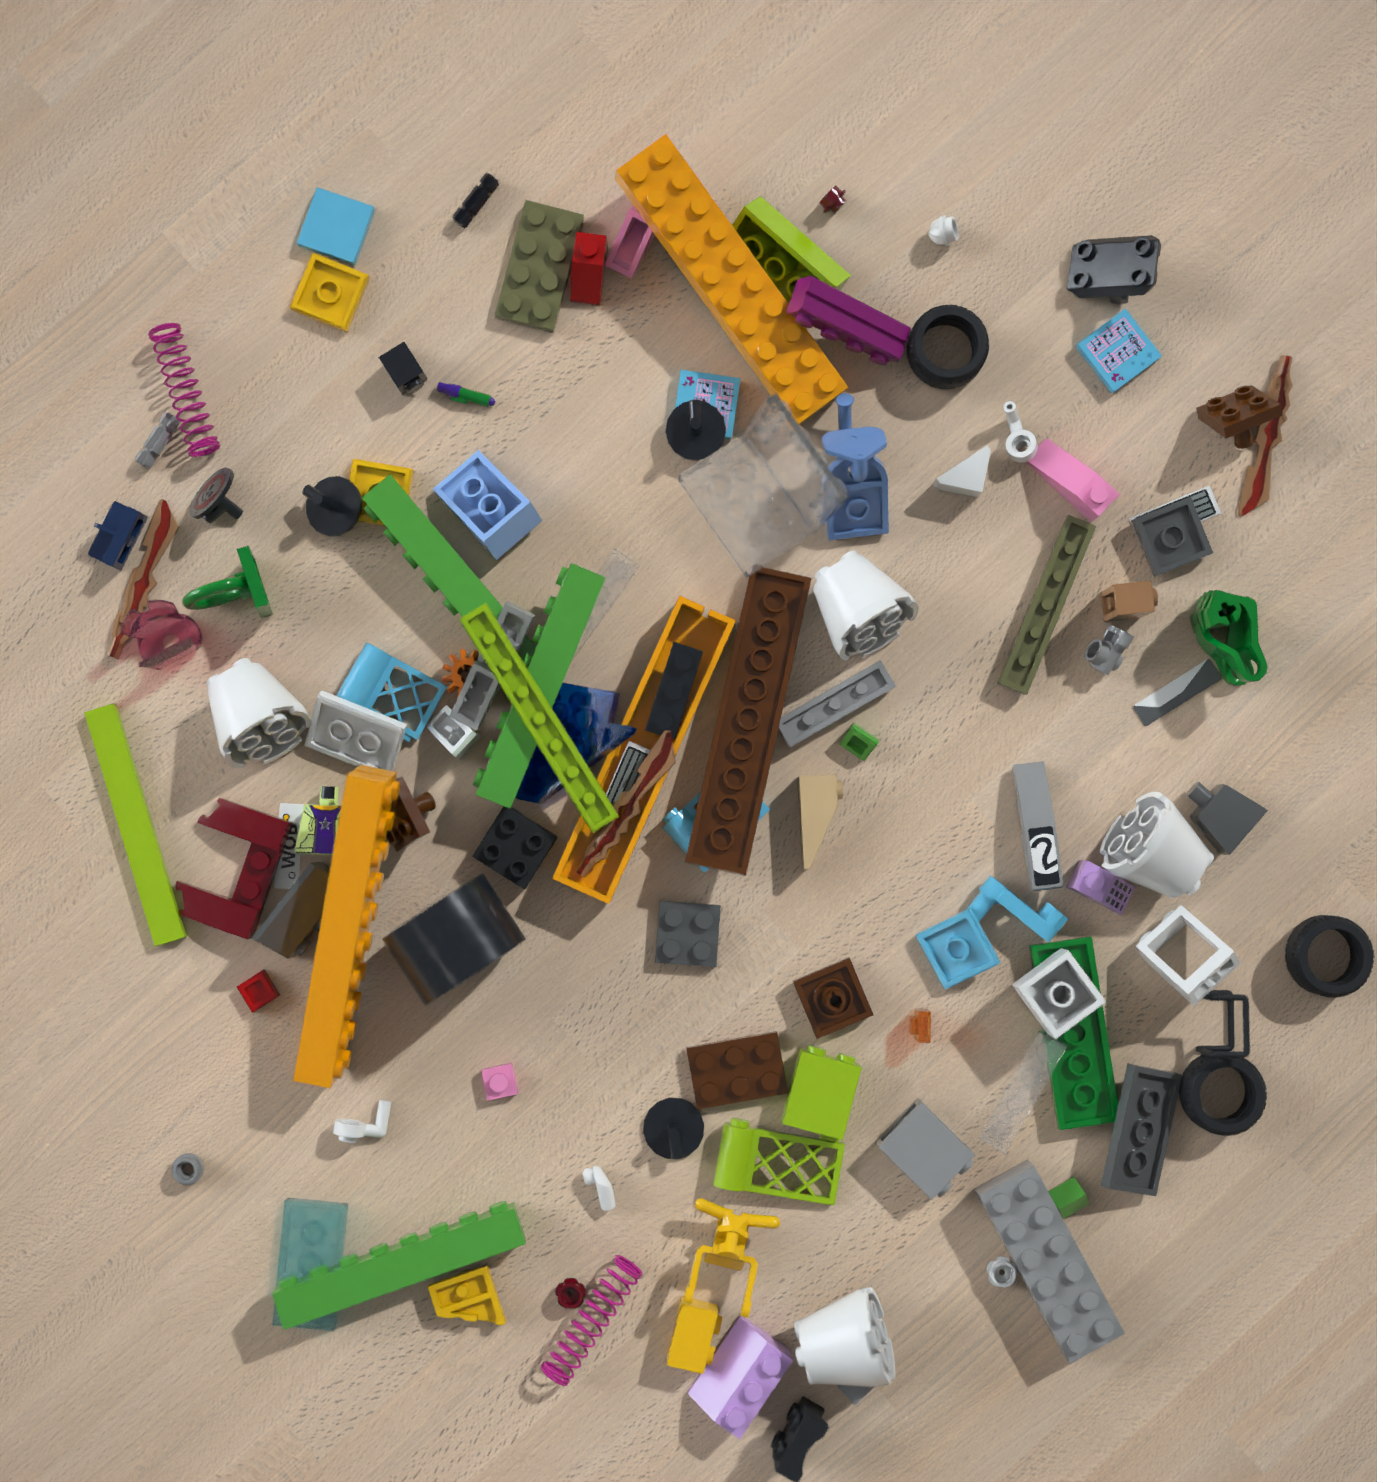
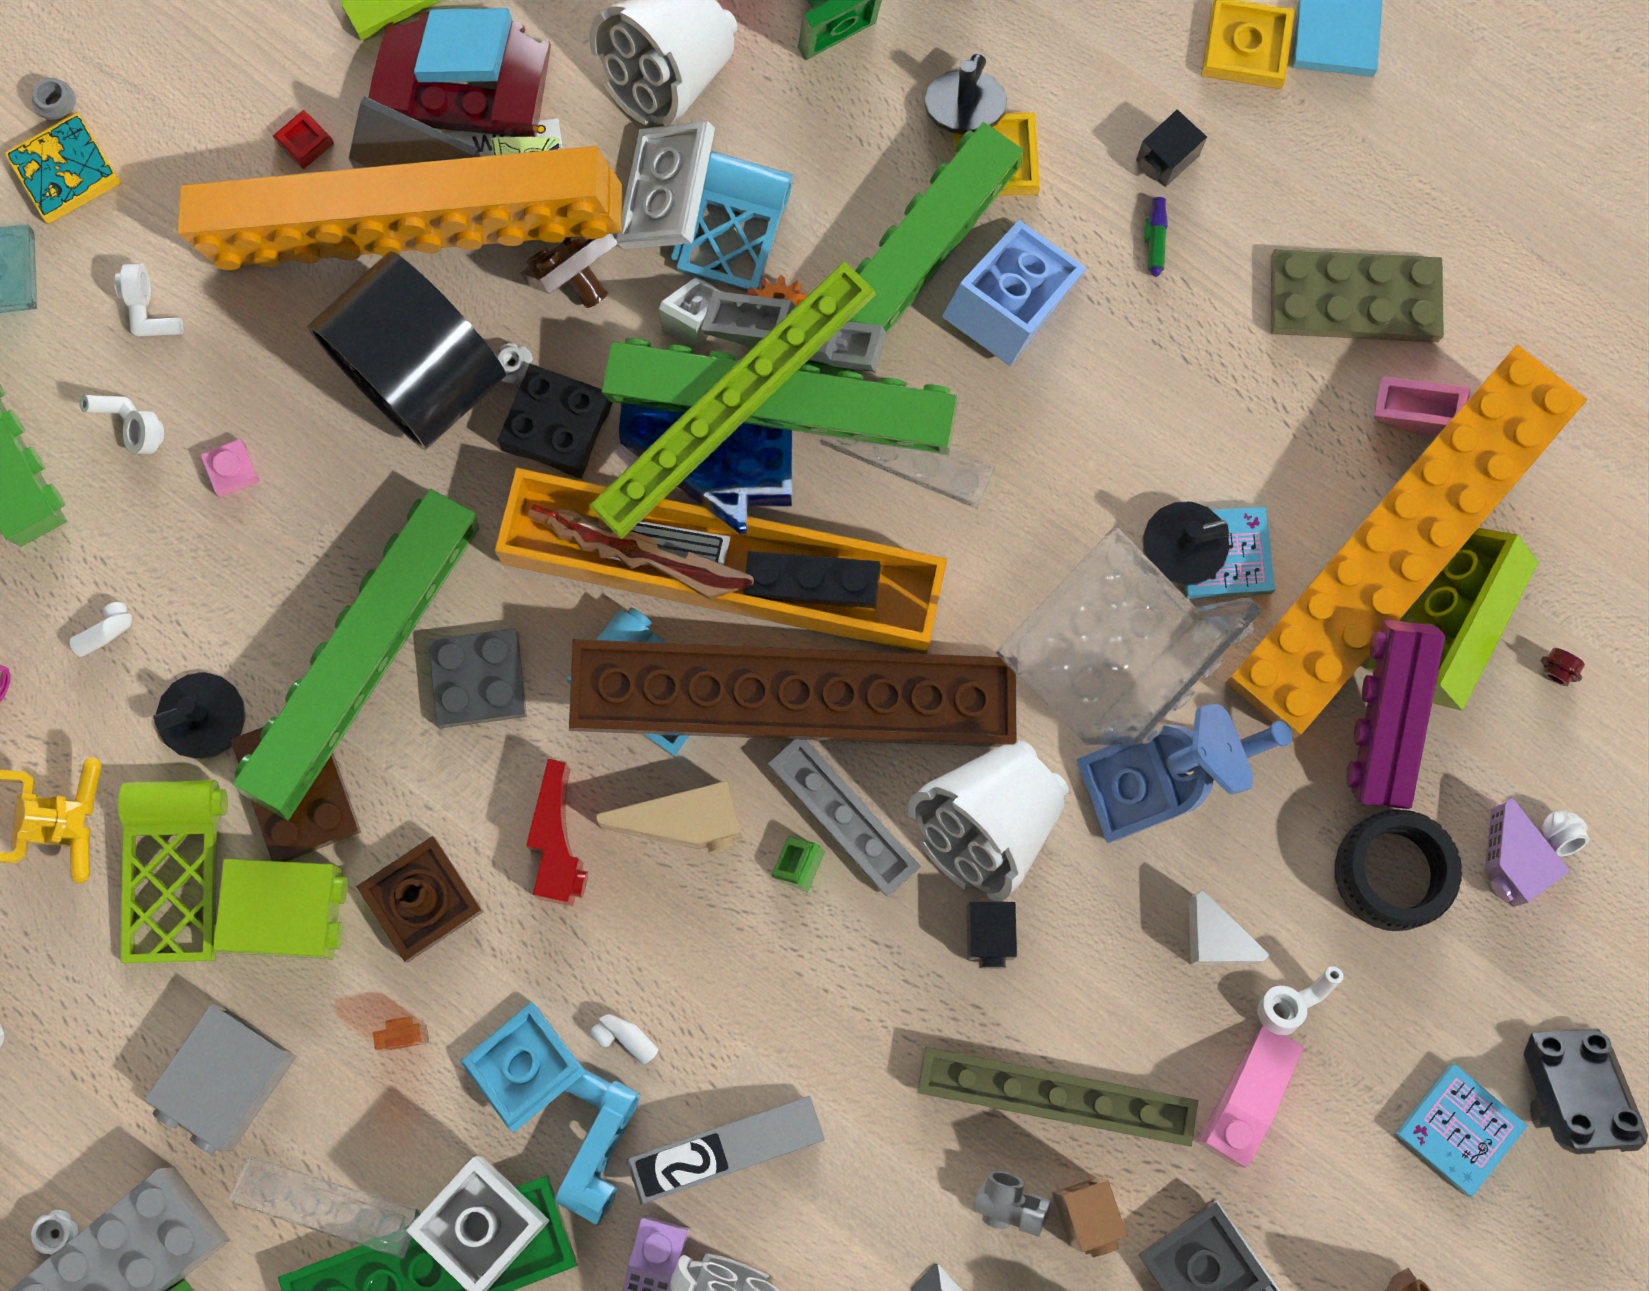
camera: 80 degrees right, 10 degrees down
(212, 861) = (463, 45): none -> medium azure tile
(243, 1169) = (62, 168): none -> tile
(456, 869) = (521, 355): none -> white plate
(460, 1139) = (140, 429): none -> white plate
(475, 200) = (1422, 196): black axle -> none
(588, 268) = (1372, 354): red slope -> none
(658, 1010) = (356, 655): none -> bright green brick
(834, 900) = (559, 873): none -> red slope
(934, 623) = (991, 933): none -> black brick
(949, 876) = (628, 1034): none -> white arm
(954, 265) = (1519, 856): none -> lavender slope

